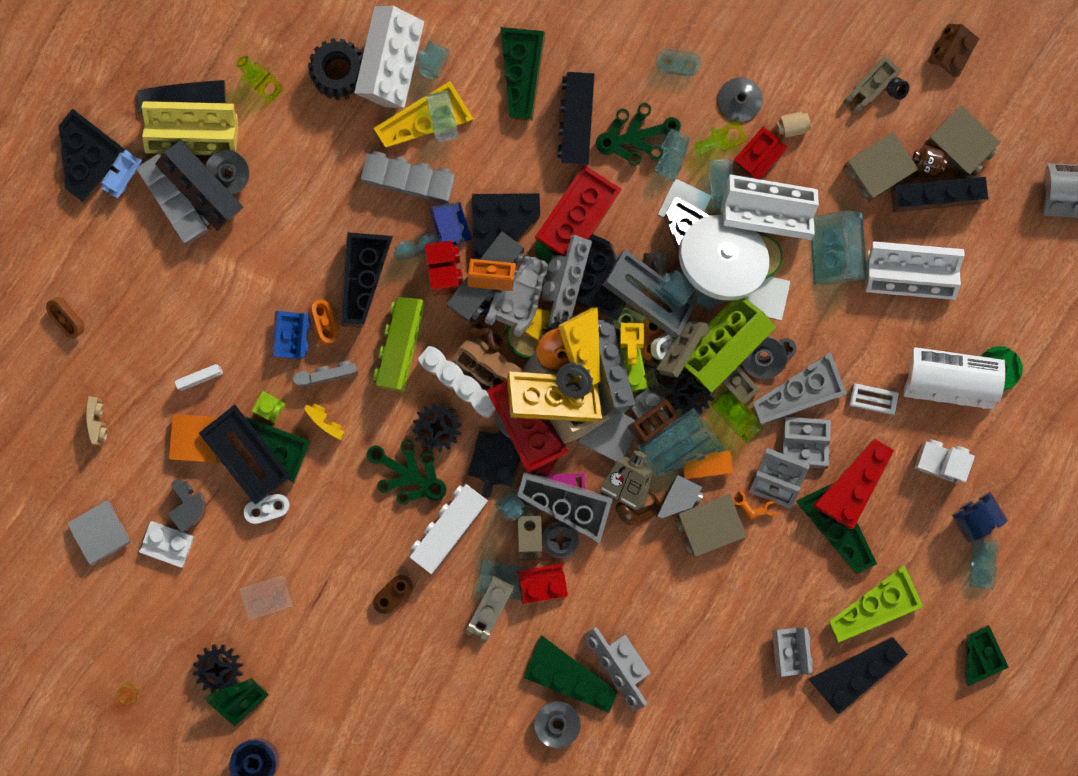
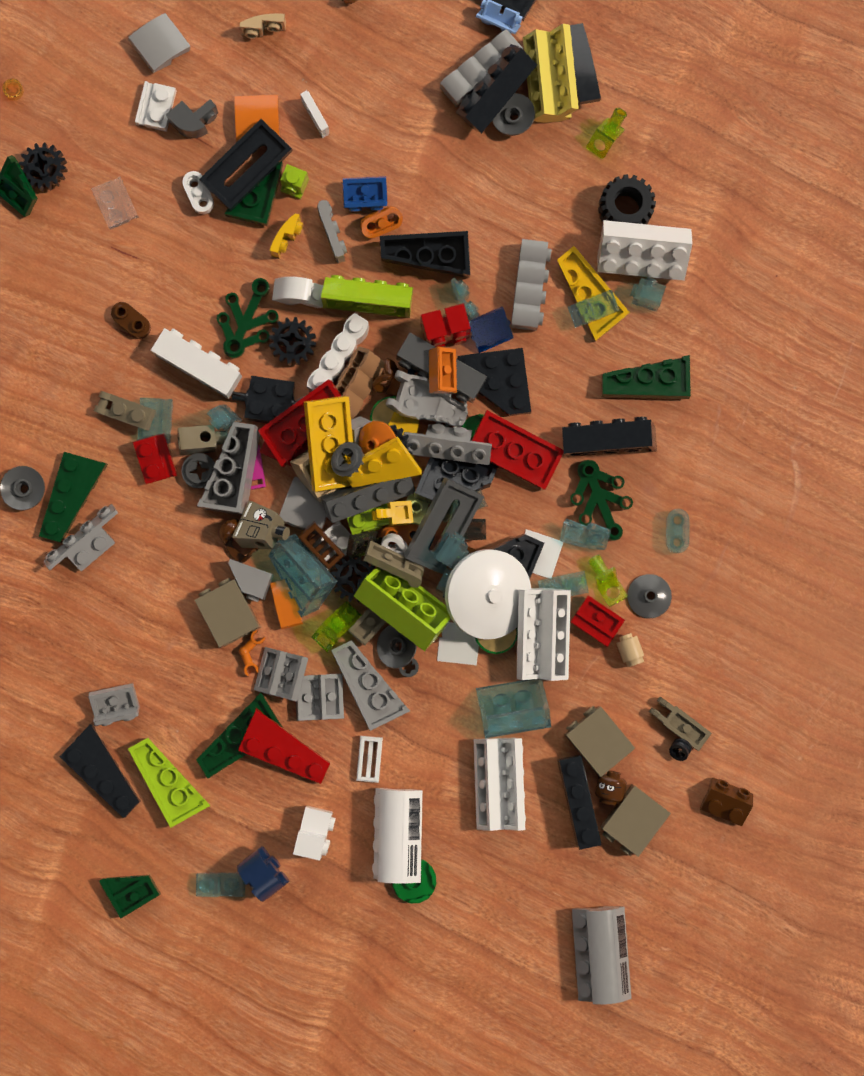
camera: 80 degrees right, 0 degrees up
(386, 415) = (297, 290): none -> white brick

